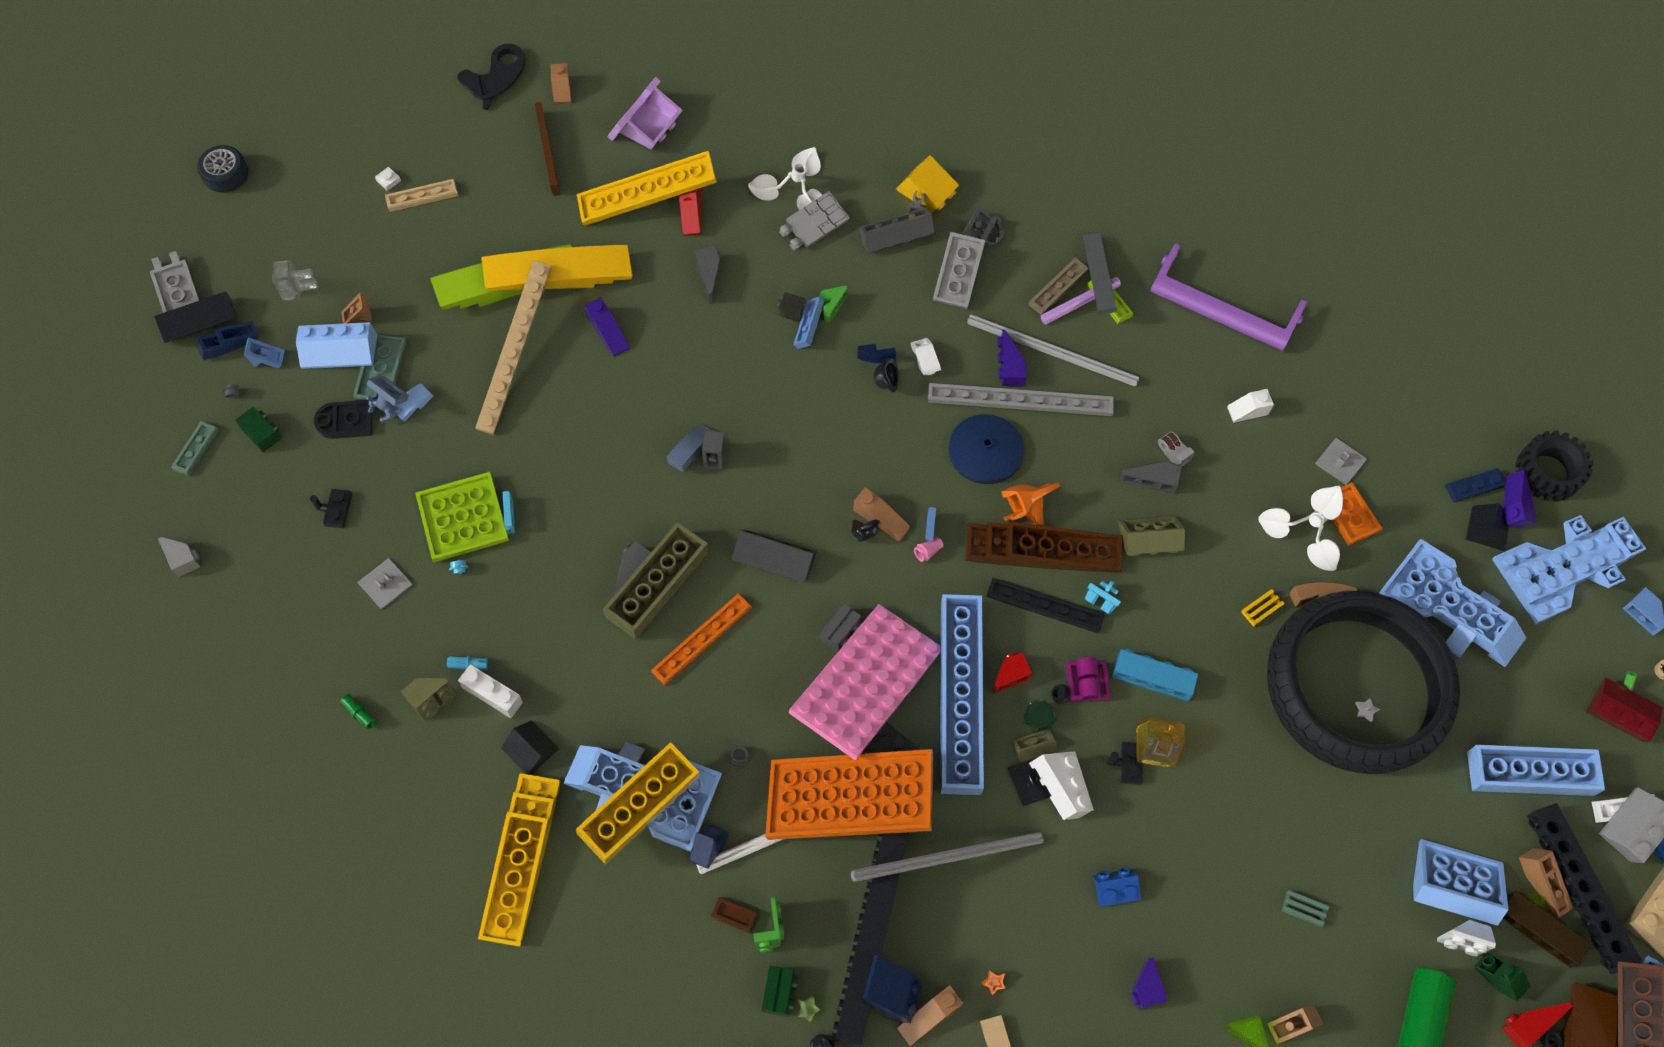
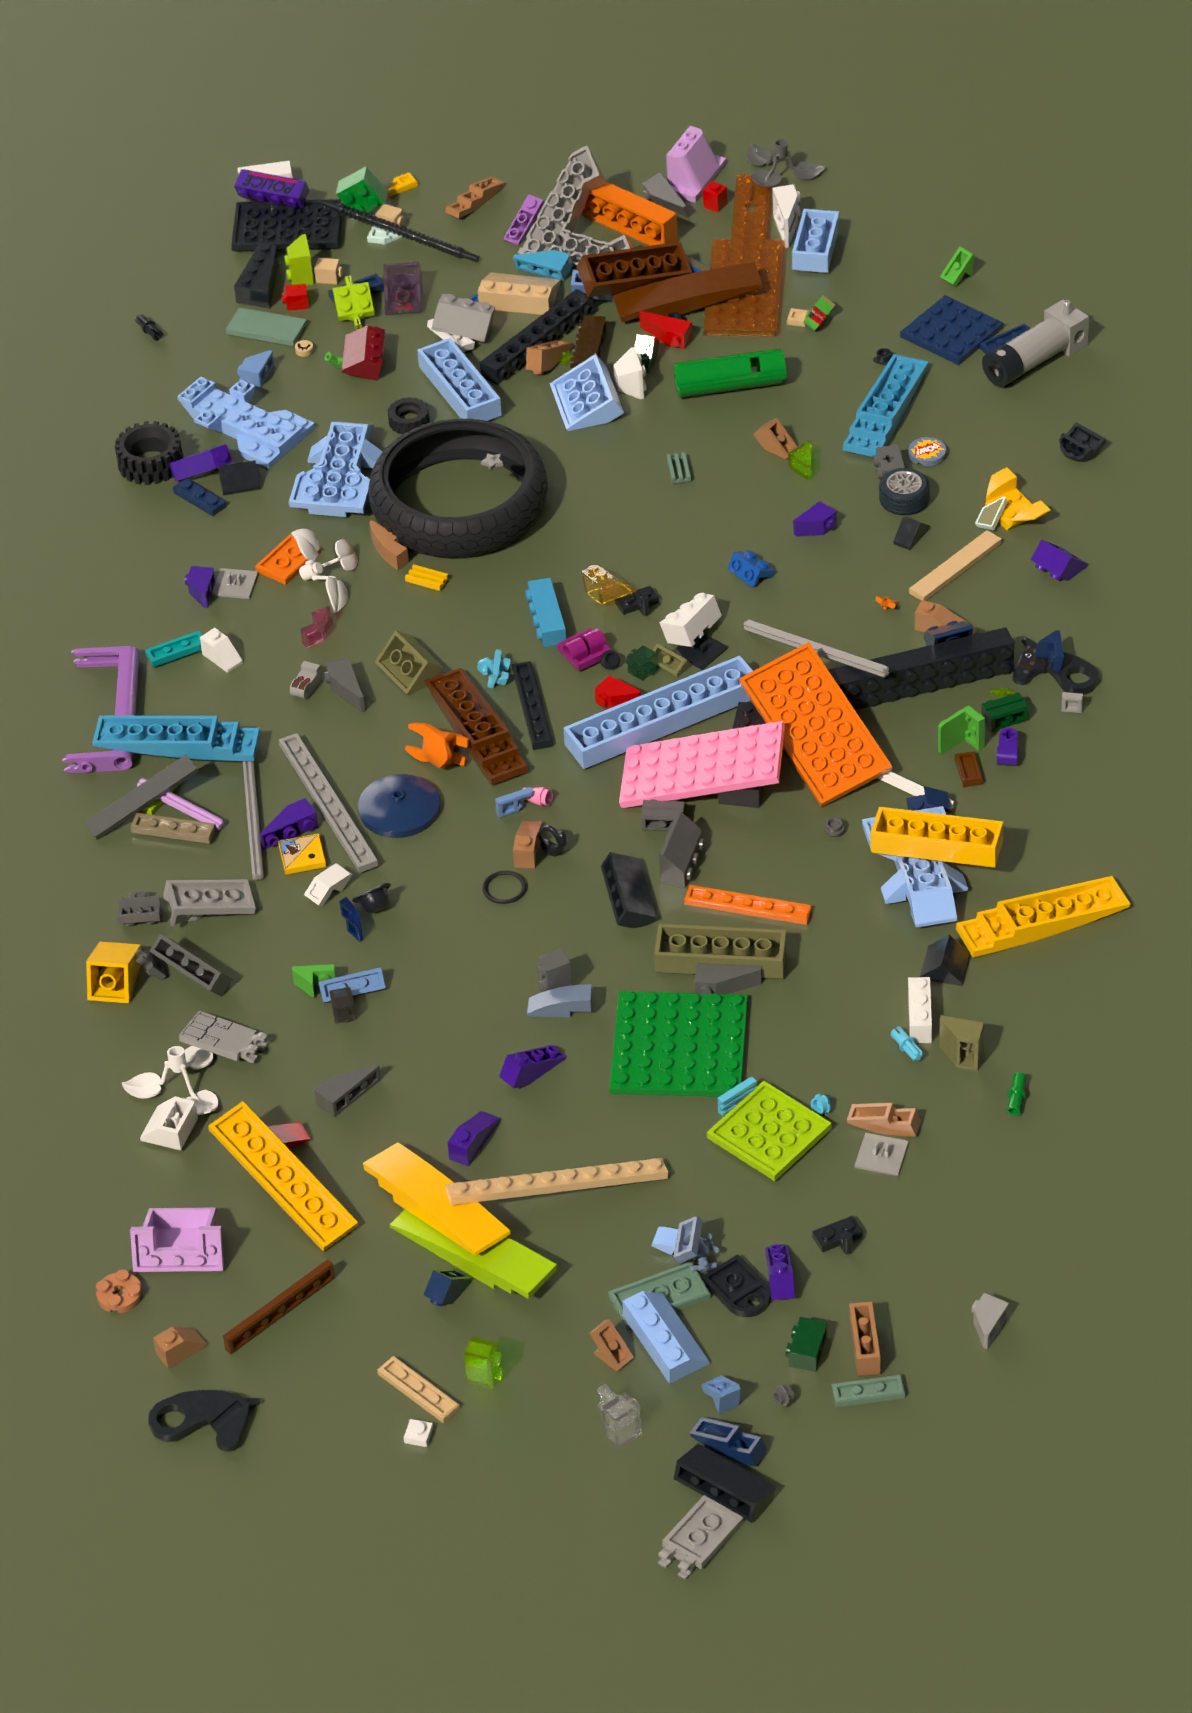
camera: 115 degrees left, 20 degrees down
(222, 168) = (519, 1586): black wheel -> none
(226, 462) = (864, 1338): none -> medium nougat brick
(333, 449) = (779, 1272): none -> dark purple slope
(399, 228) = (483, 1362): none -> clear neon green brick
(409, 601) = (885, 1119): none -> medium nougat slope
(485, 242) = (446, 1286): none -> slope
(594, 507) = (678, 1043): none -> green plate
(631, 67) = (119, 1281): none -> nougat plate
(644, 398) = (527, 1066): none -> dark purple slope
(727, 959) = (1008, 749): none -> dark purple piece
(752, 156) = (171, 1123): none -> white slope
(784, 612) = (680, 851): none -> dark grey slope
(845, 492) = (484, 887): none -> black tyre
(975, 358) = (301, 854): none -> tile
(1152, 324) = (178, 736): none -> dark azure slope
(1241, 493) = (317, 631): none -> clear pink slope
(1274, 377) = (174, 649): none -> teal plate
(1346, 428) = (201, 583): none -> dark purple slope
(1516, 692) = (407, 406): none -> black tyre

